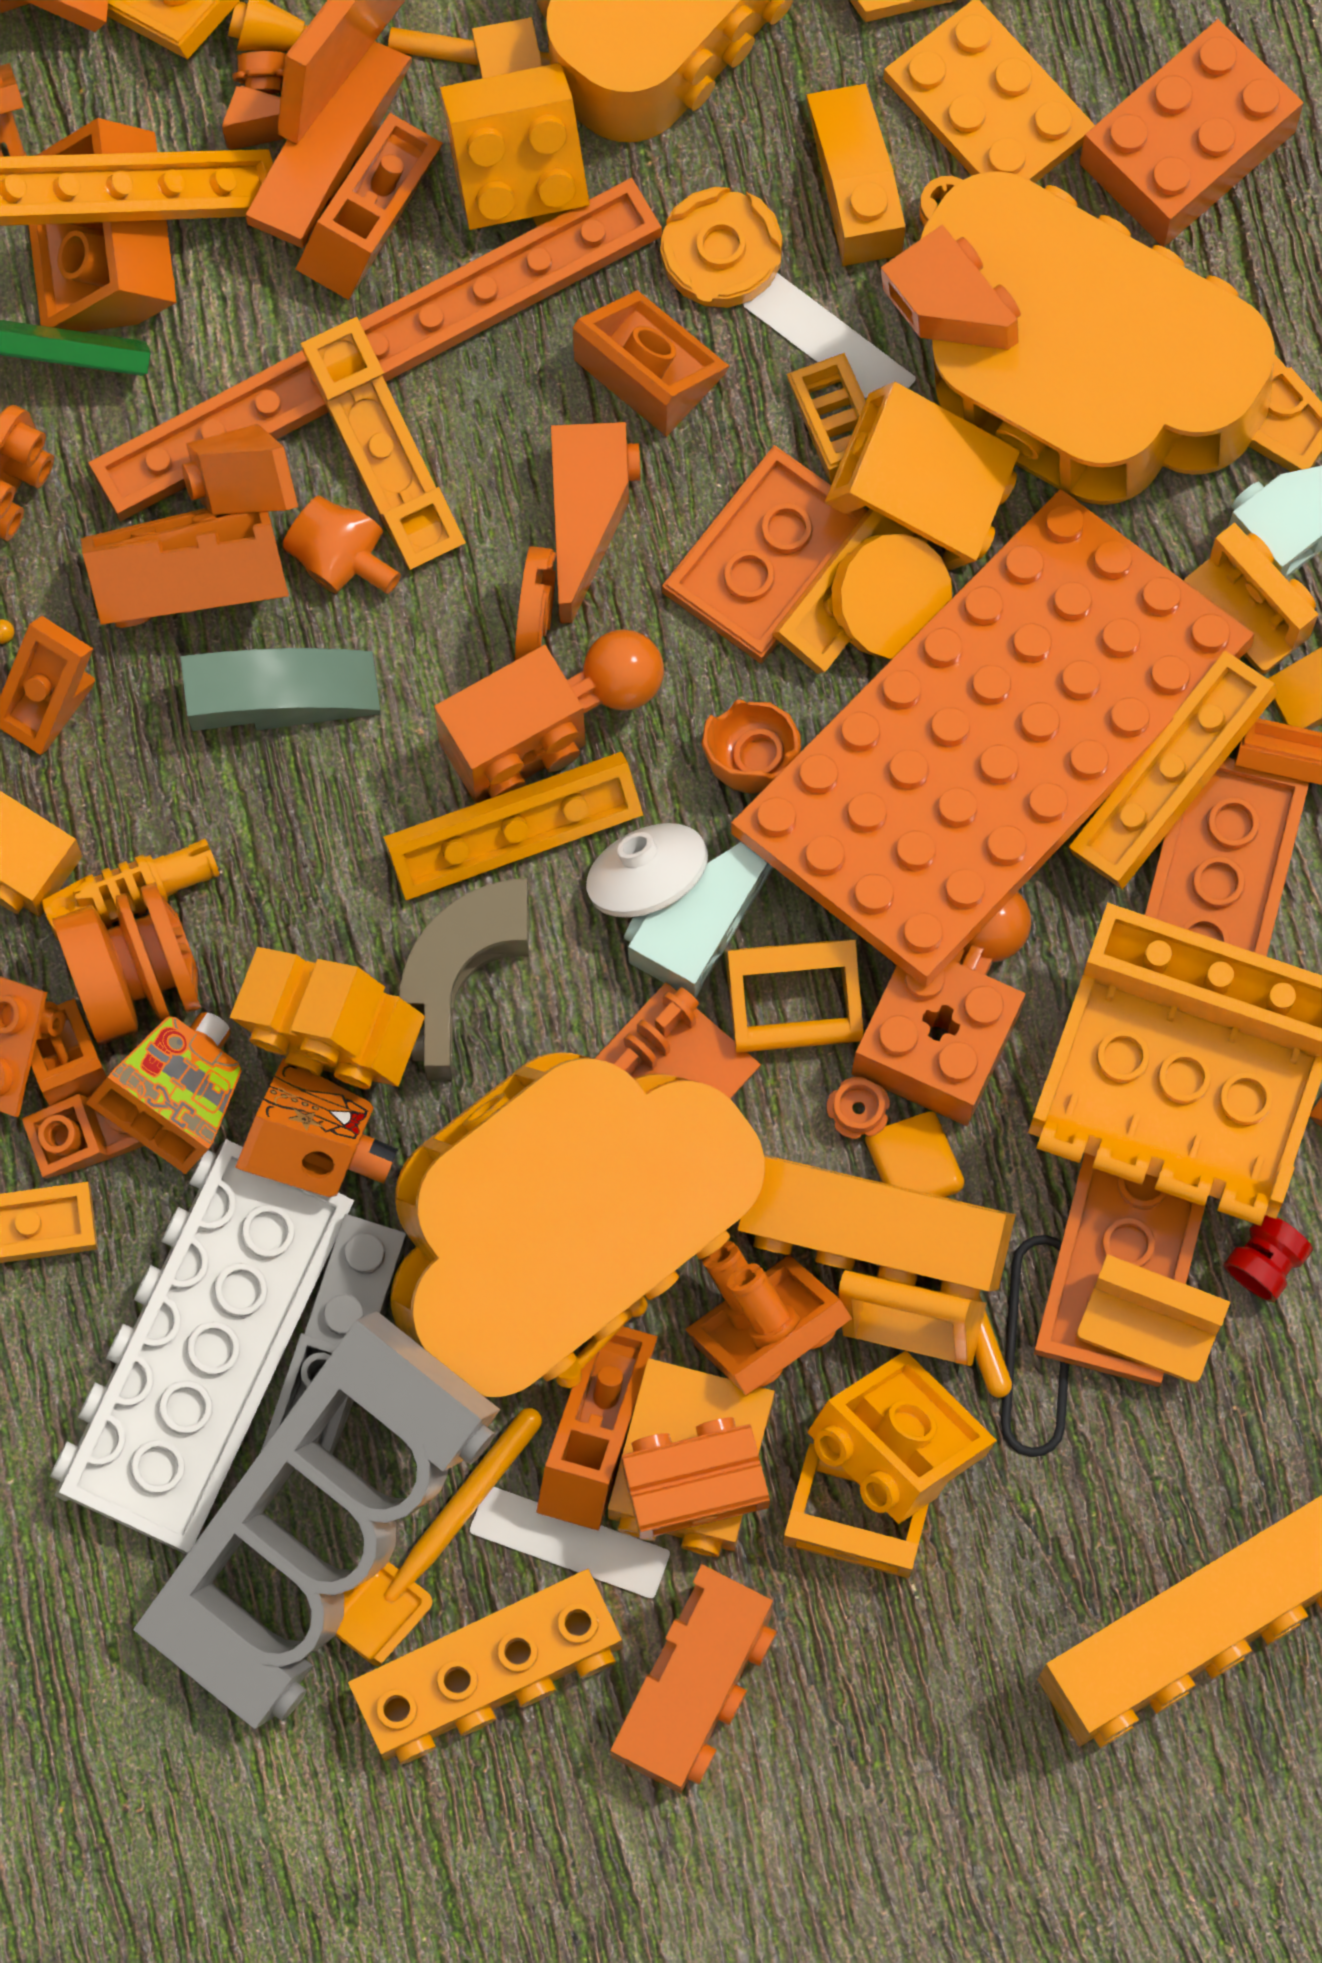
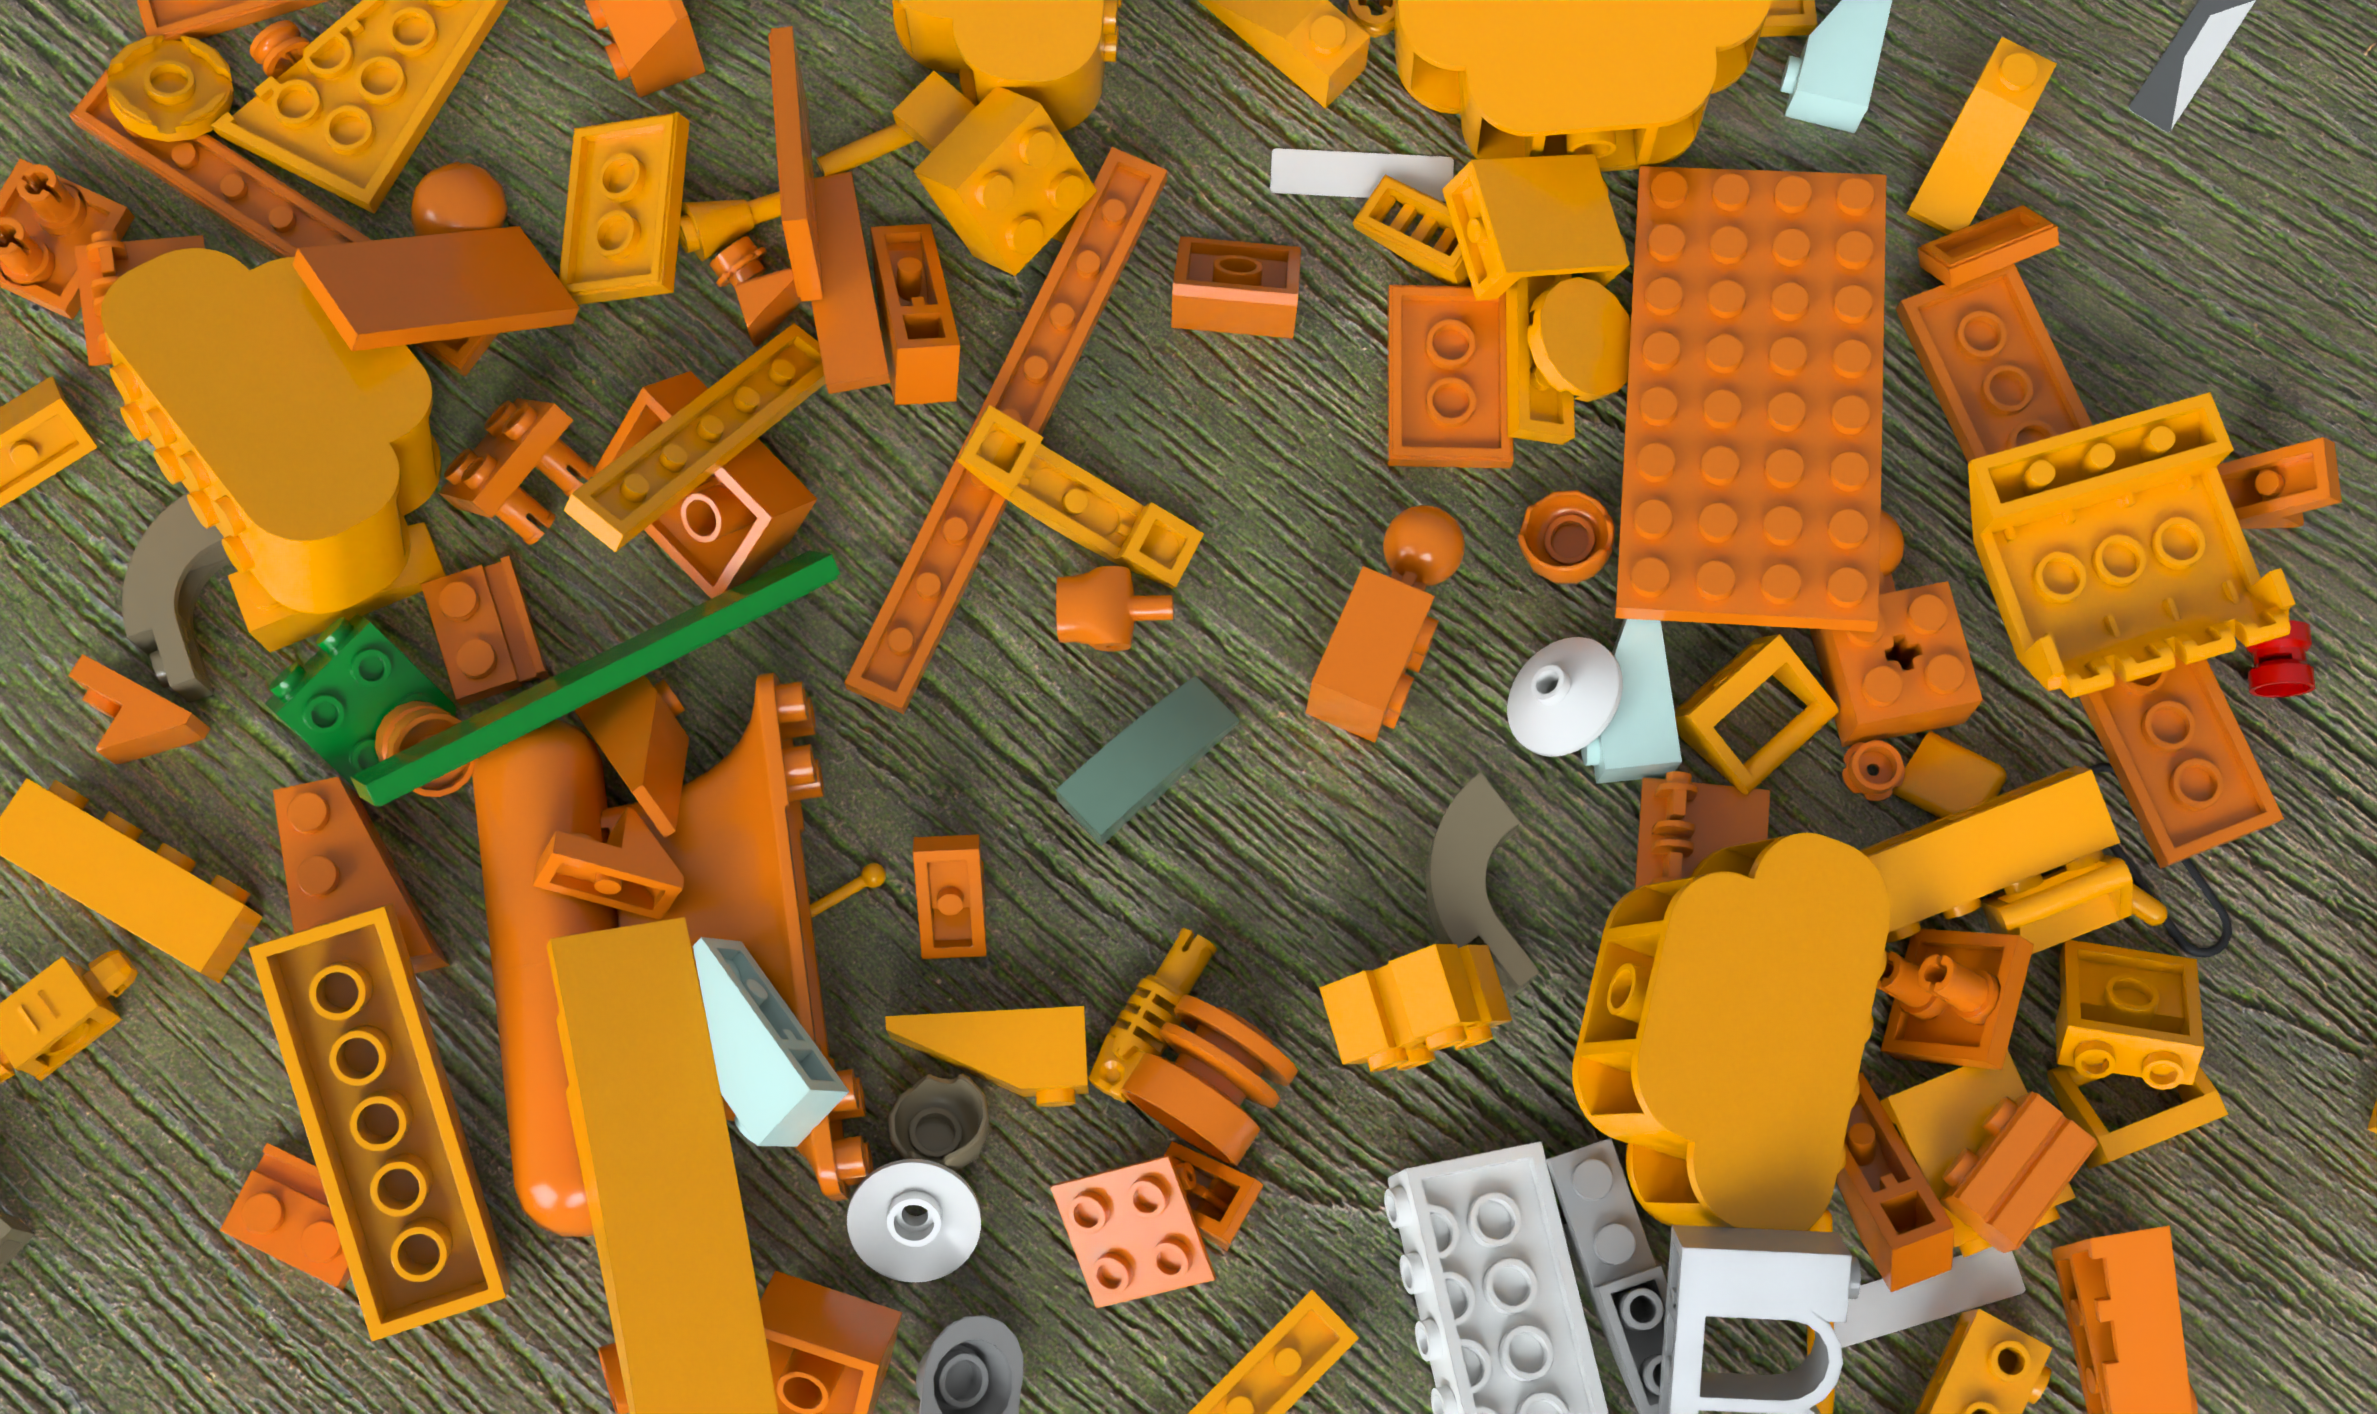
camera: 40 degrees left, 0 degrees up
(74, 1137) = (1277, 1235): orange slope -> none
(173, 1089) = (1328, 1158): torso -> none
(182, 565) = (999, 706): orange wedge -> none
(239, 472) = (989, 600): orange slope -> none
(312, 1135) = (1471, 1112): orange torso -> none
(513, 825) = (1425, 737): light orange plate -> none
(535, 600) = (1314, 546): orange tile -> none
(590, 497) = (1273, 422): orange slope -> none
(721, 247) = (1221, 156): light orange tile -> none
(947, 297) = (1473, 57): orange slope -> none
(1152, 1319) = (2244, 772): light orange panel -> none
(1173, 770) = (1914, 323): light orange plate -> none
(1257, 595) = (1859, 139): light orange bracket -> none

